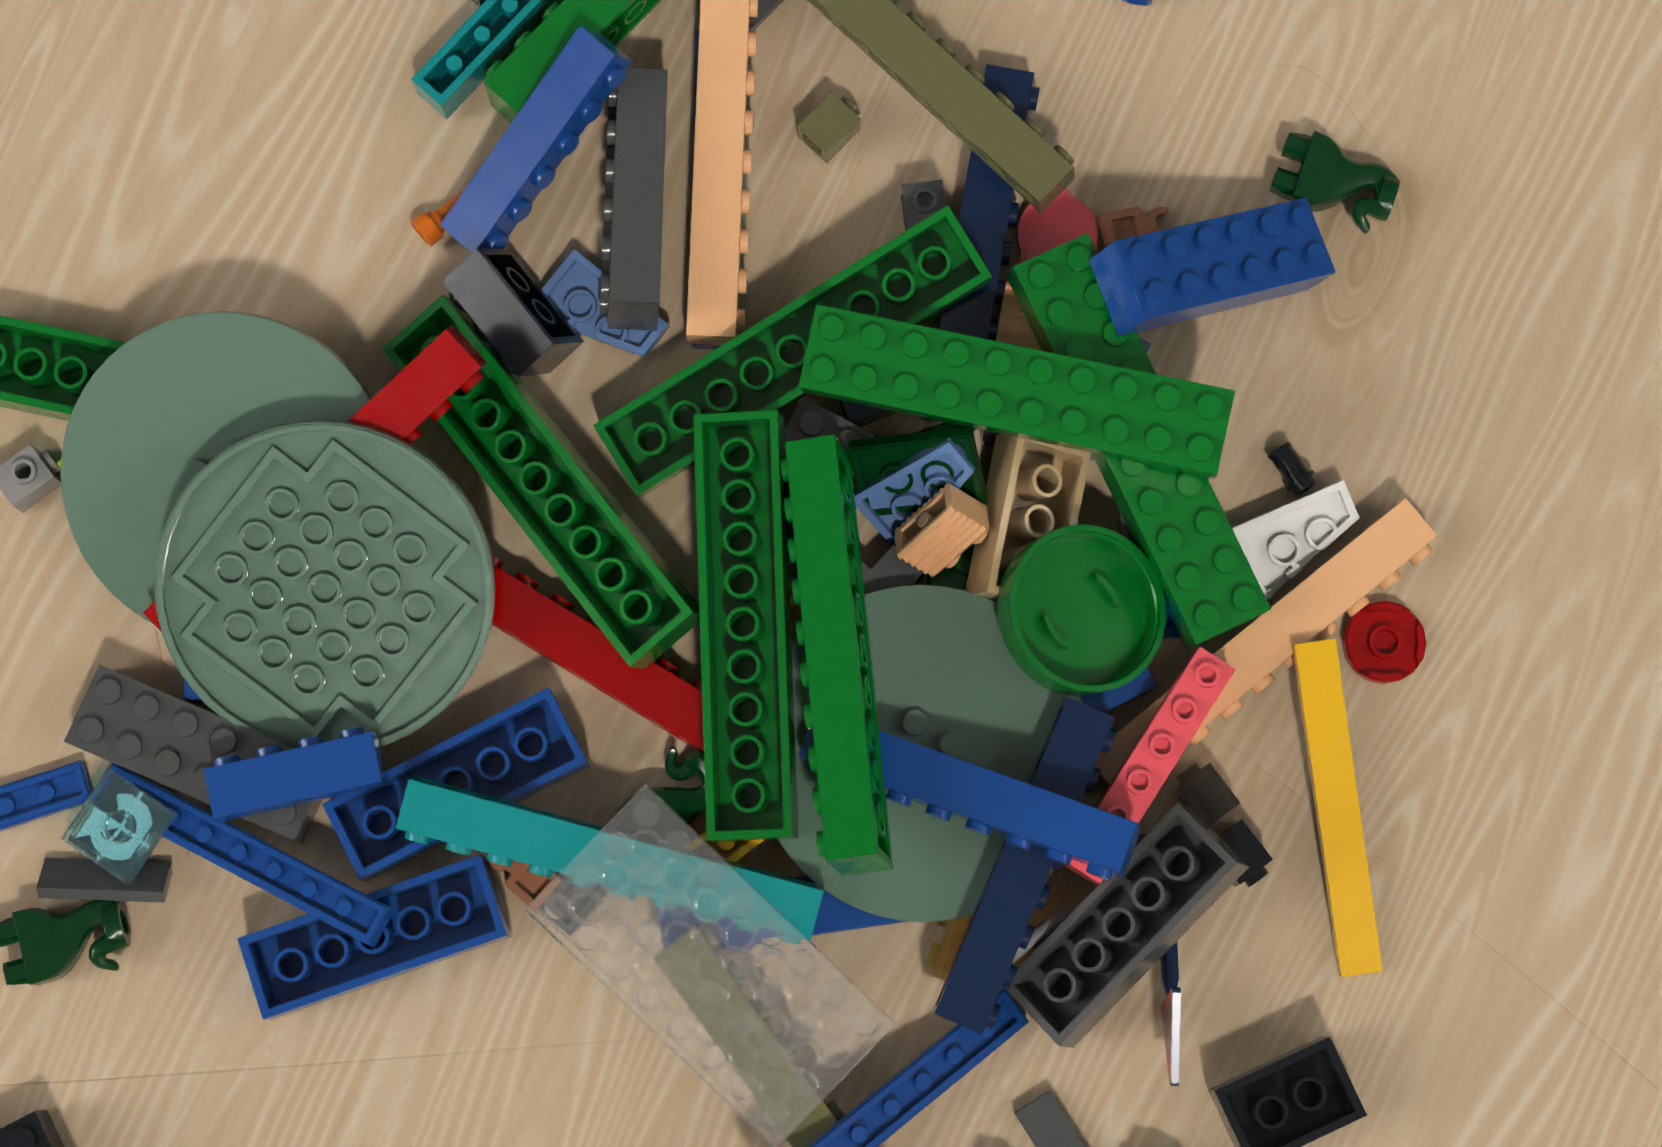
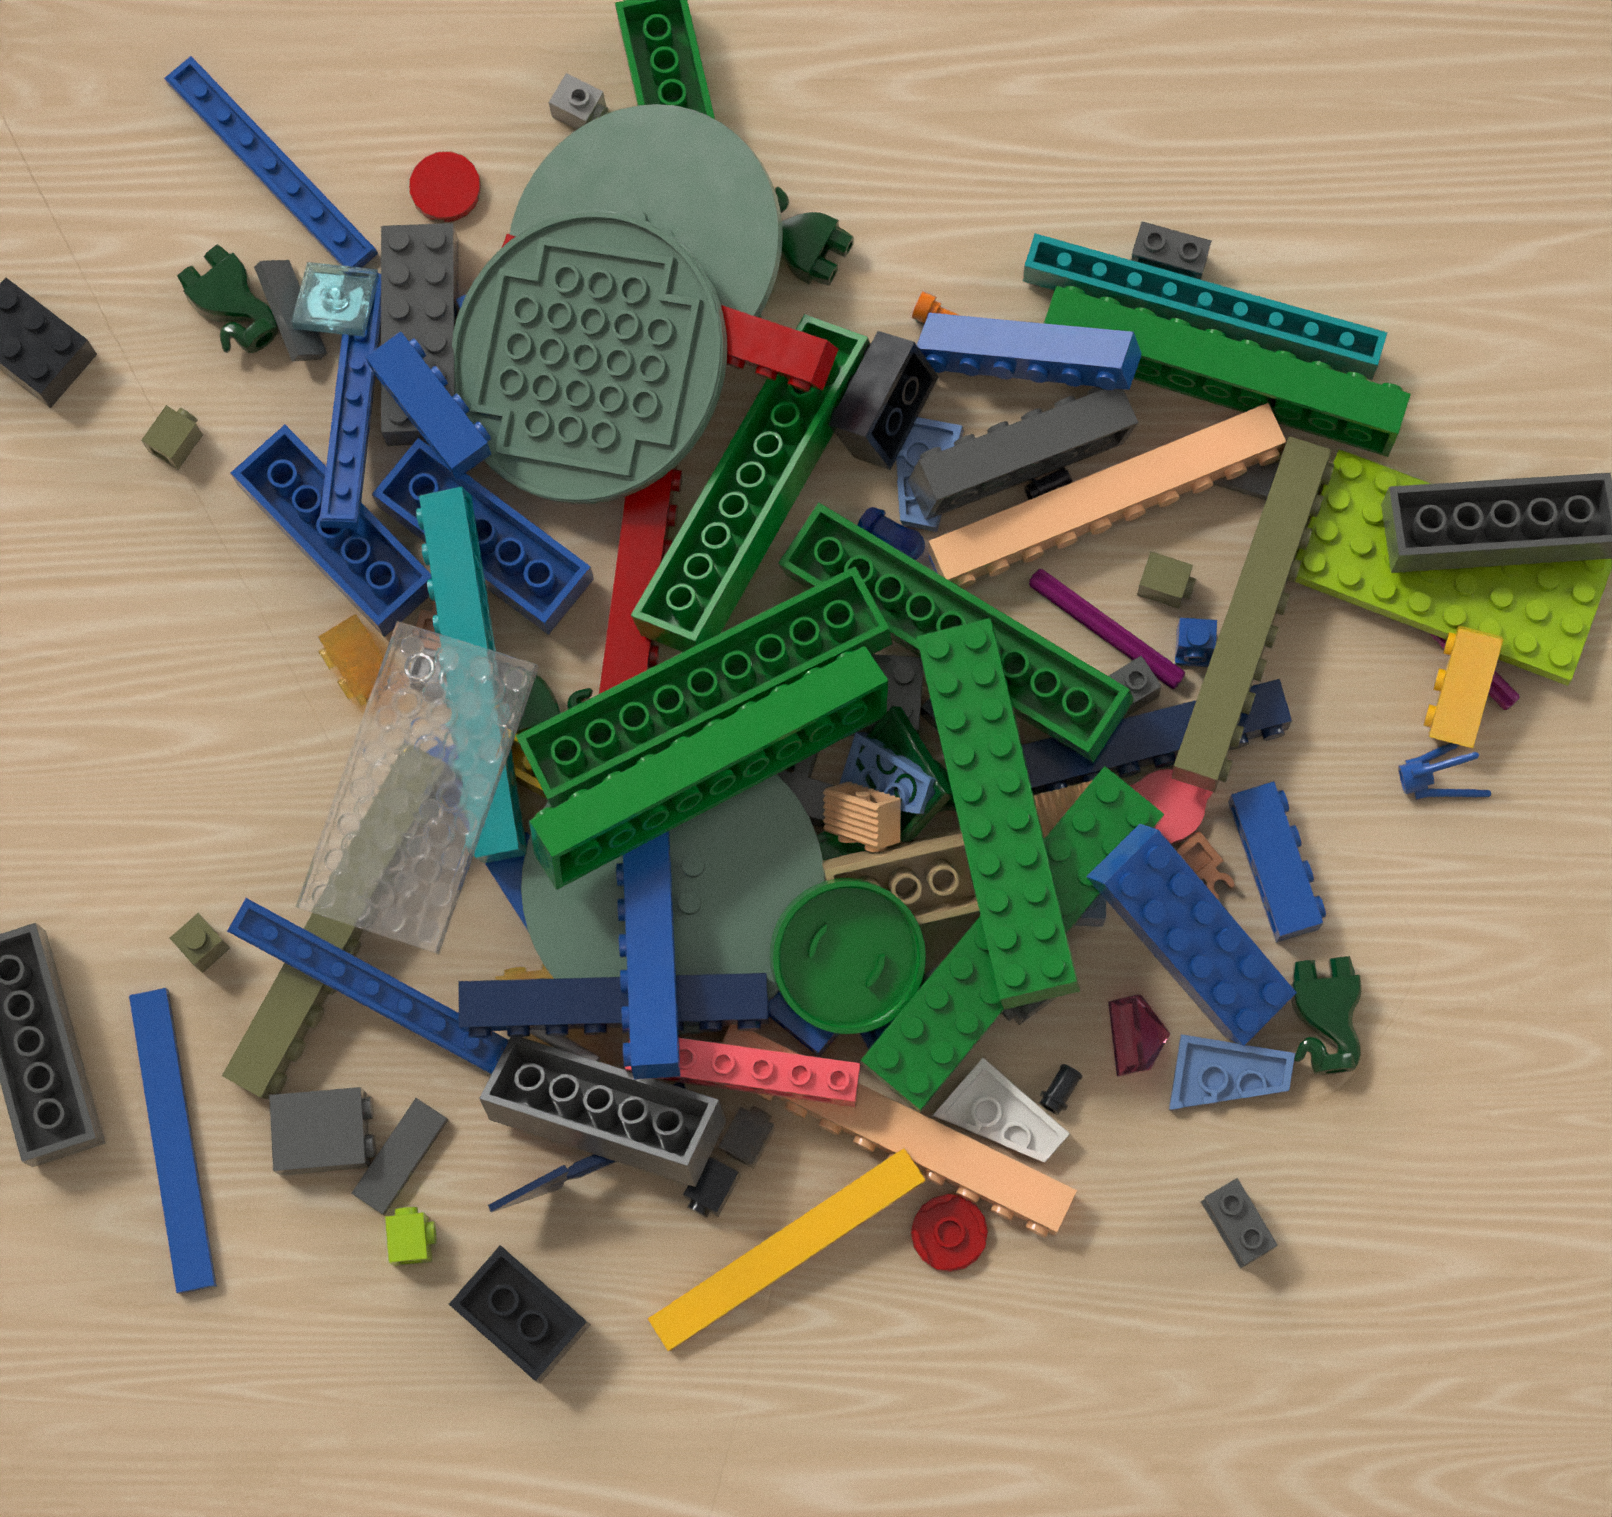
camera: 75 degrees right, 5 degrees down
(46, 657) = (445, 186): none -> red tile
(184, 1065) = (172, 436): none -> olive brick
(295, 304) = (808, 241): none -> dark green hips
(525, 975) = (354, 655): none -> clear yellow brick
(650, 372) = (898, 536): none -> clear blue piece
(677, 204) = (1047, 483): none -> black pin
(847, 208) = (1105, 627): none -> magenta axle
(907, 128) = (1195, 641): none -> blue brick
(1163, 156) = (1276, 862): none -> blue brick
(1271, 372) = (1136, 1034): none -> clear pink slope
(1344, 304) = (1225, 1071): none -> medium blue wing
(1500, 360) = (1238, 1223): none -> dark grey hinge

